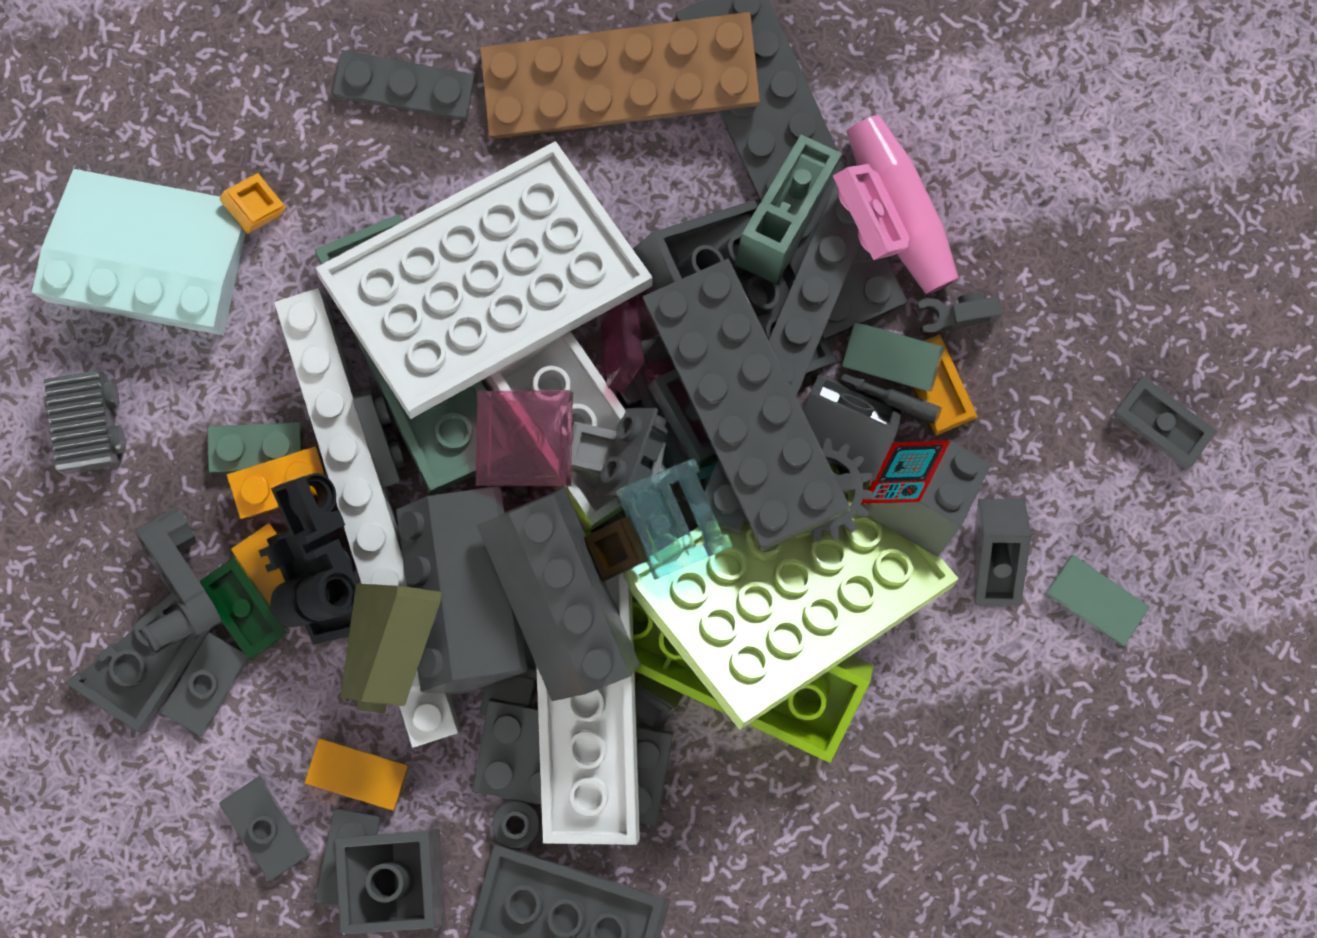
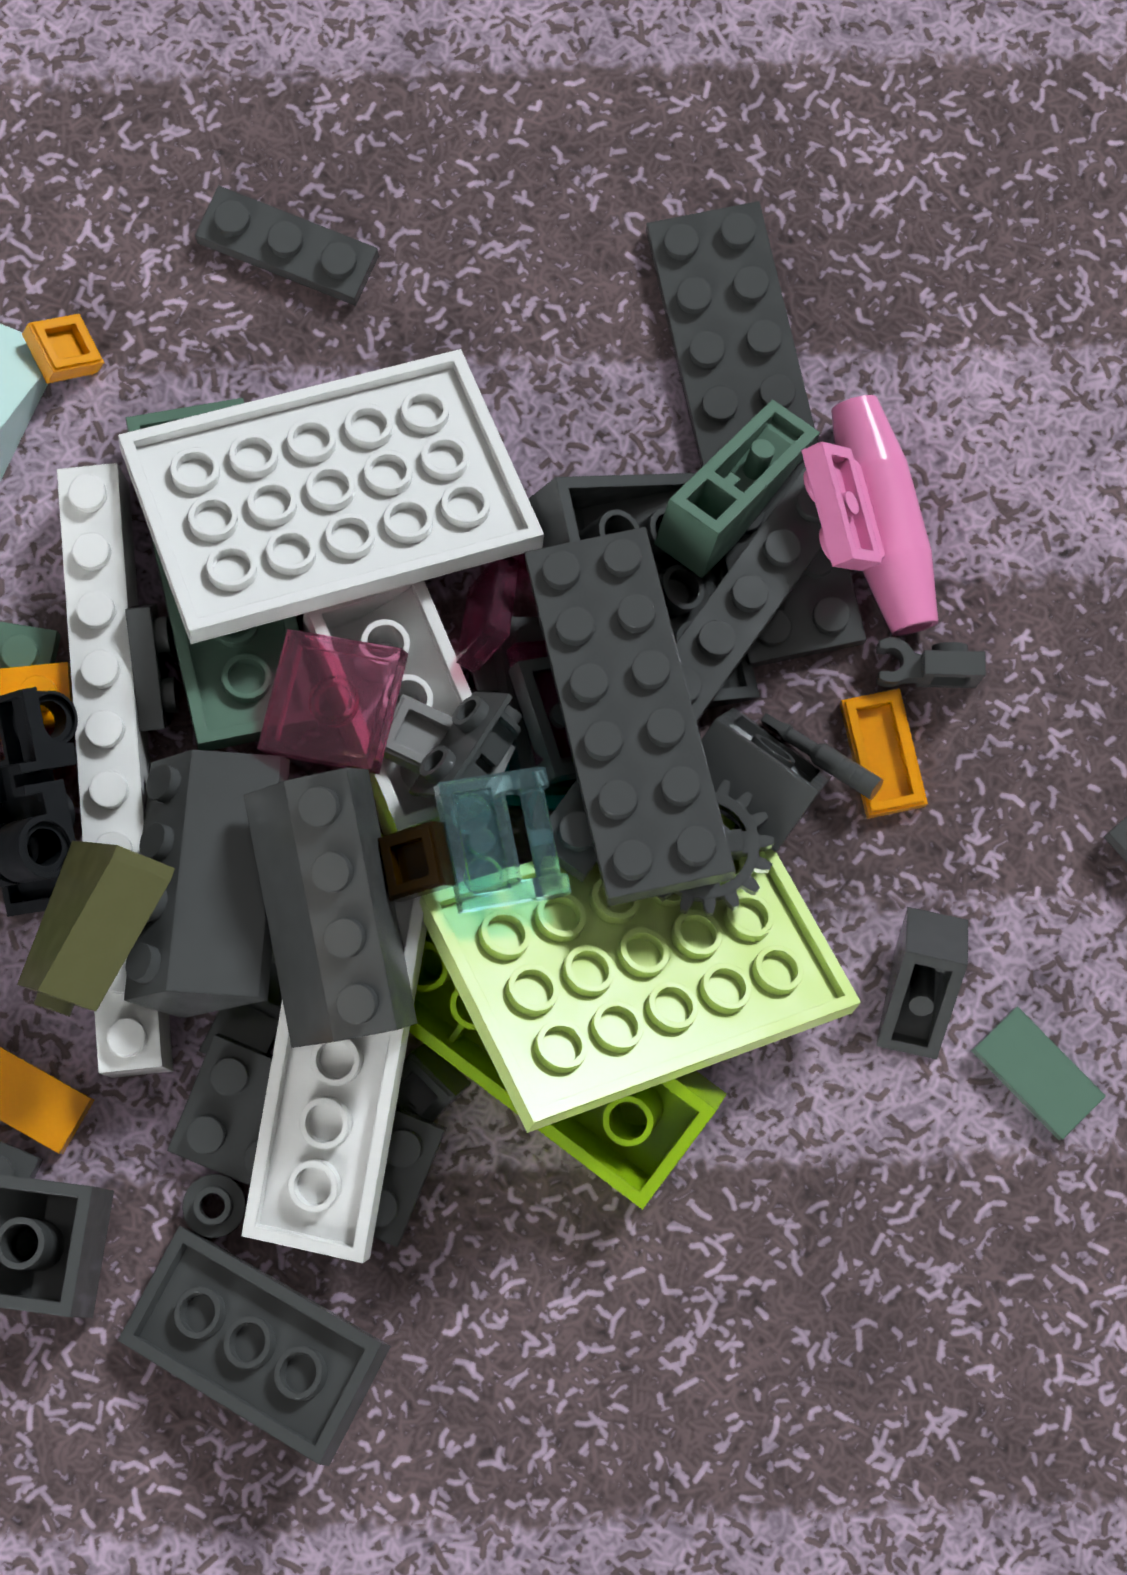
camera: 10 degrees right, 5 degrees down
(620, 76) = (560, 285): medium nougat plate -> none
(893, 356) = (834, 703): sand green tile -> none
(926, 491) = (841, 881): dark grey slope -> none

